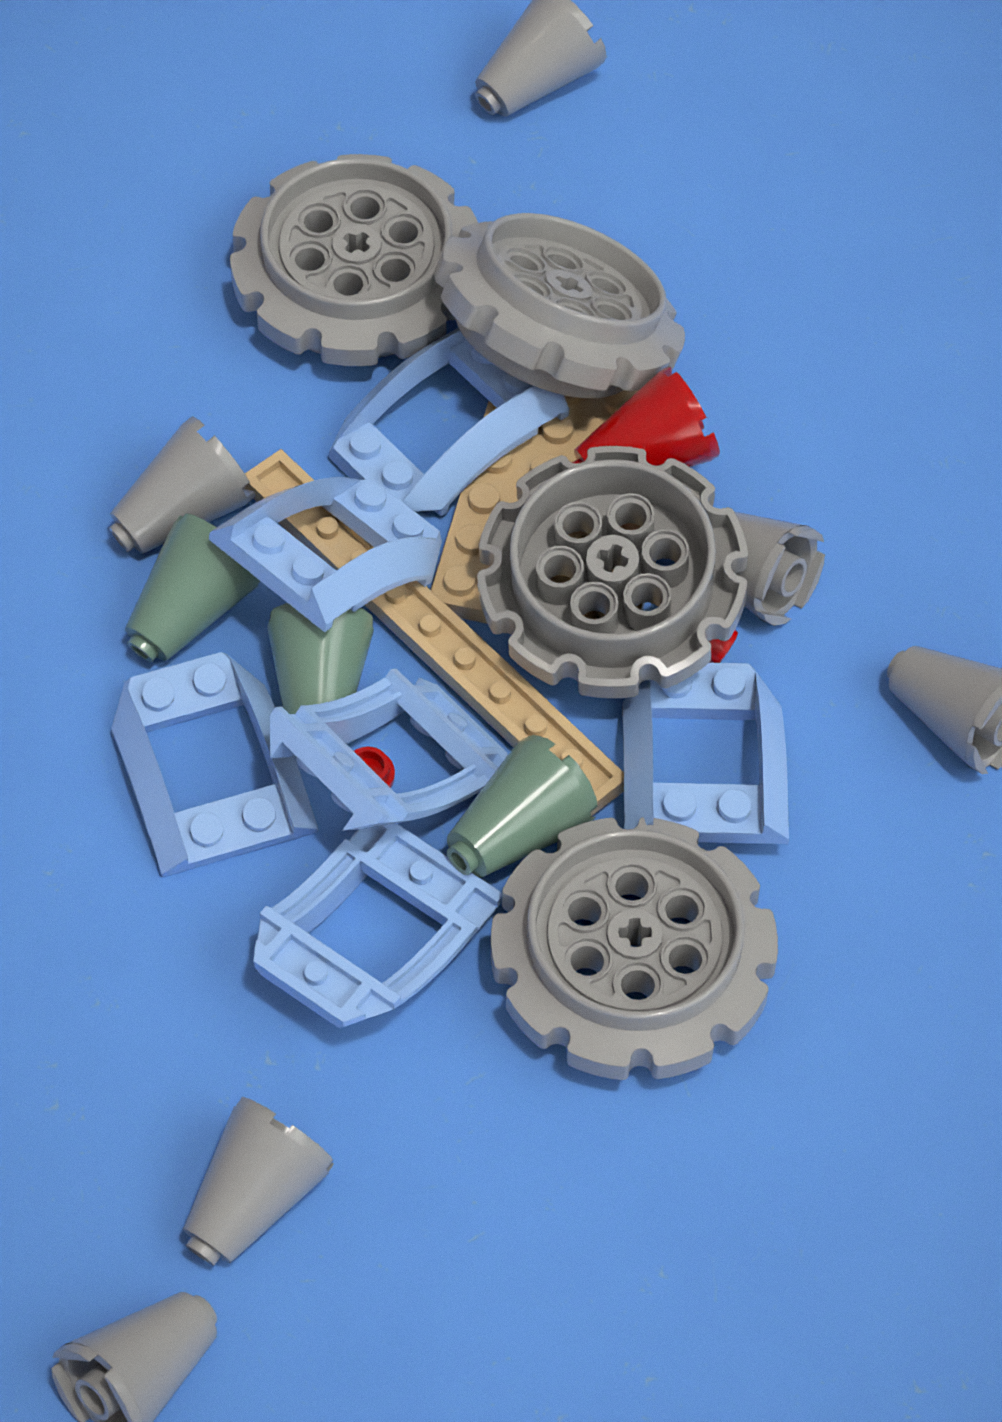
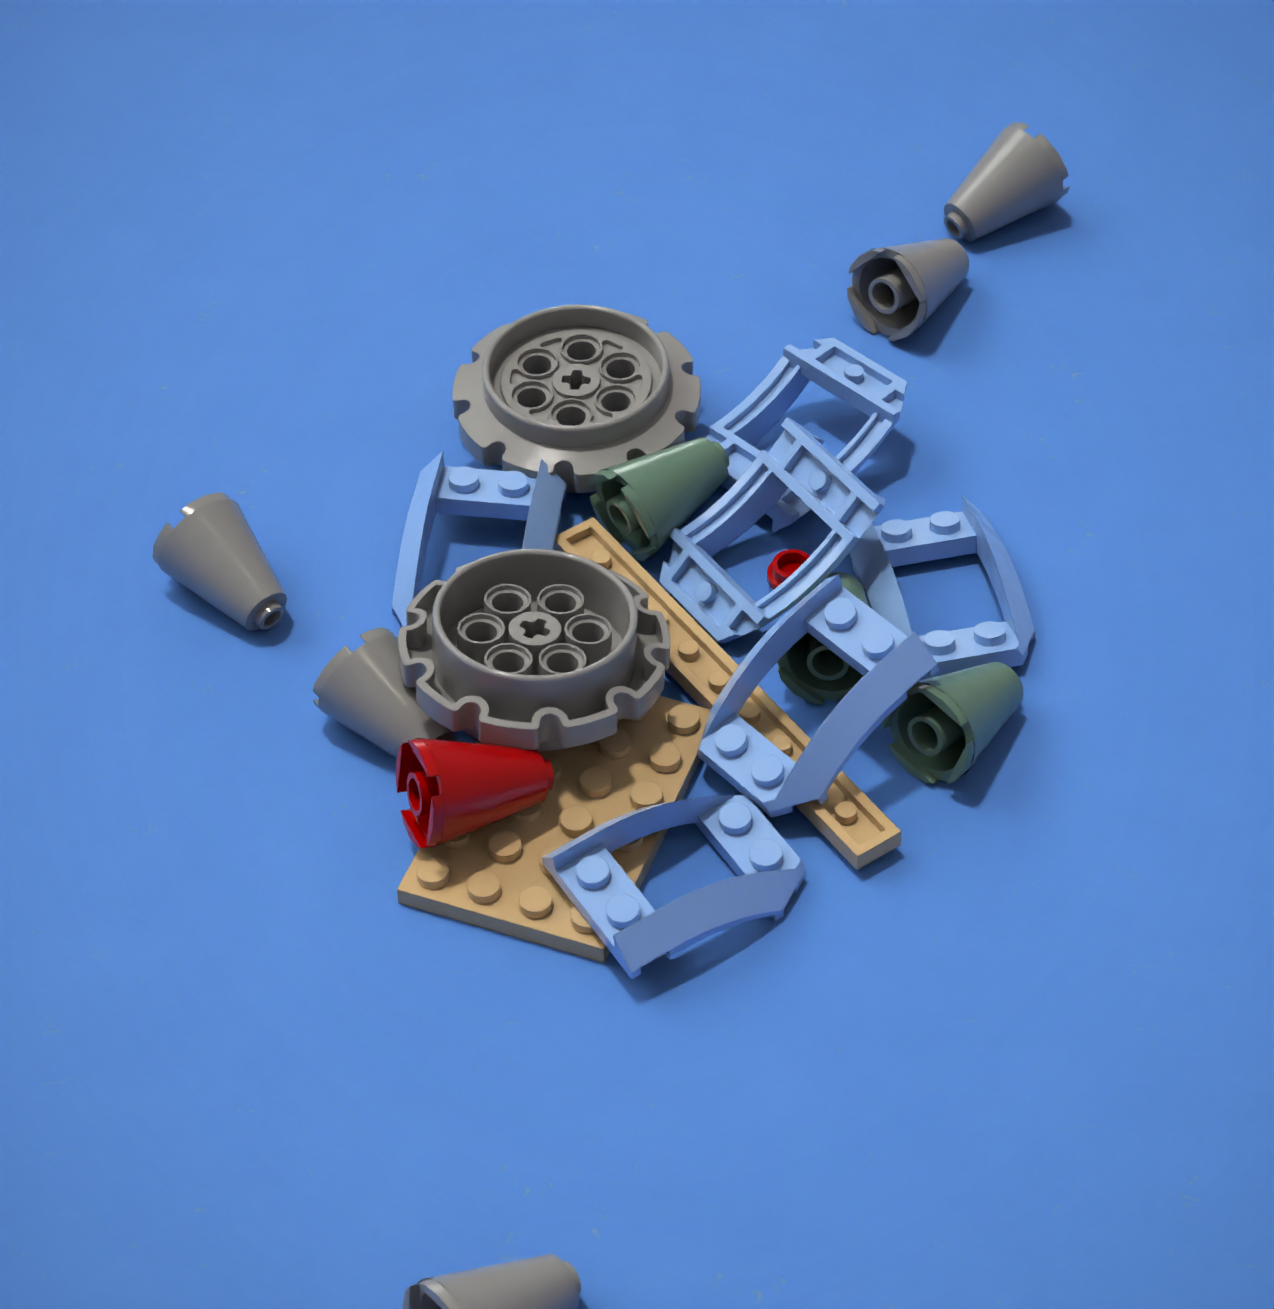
camera: 170 degrees left, 10 degrees down
(181, 479) = (959, 811): light grey cone -> none
(347, 258) = (748, 1008): light grey piece -> none
(559, 305) = (535, 915): light grey piece -> none

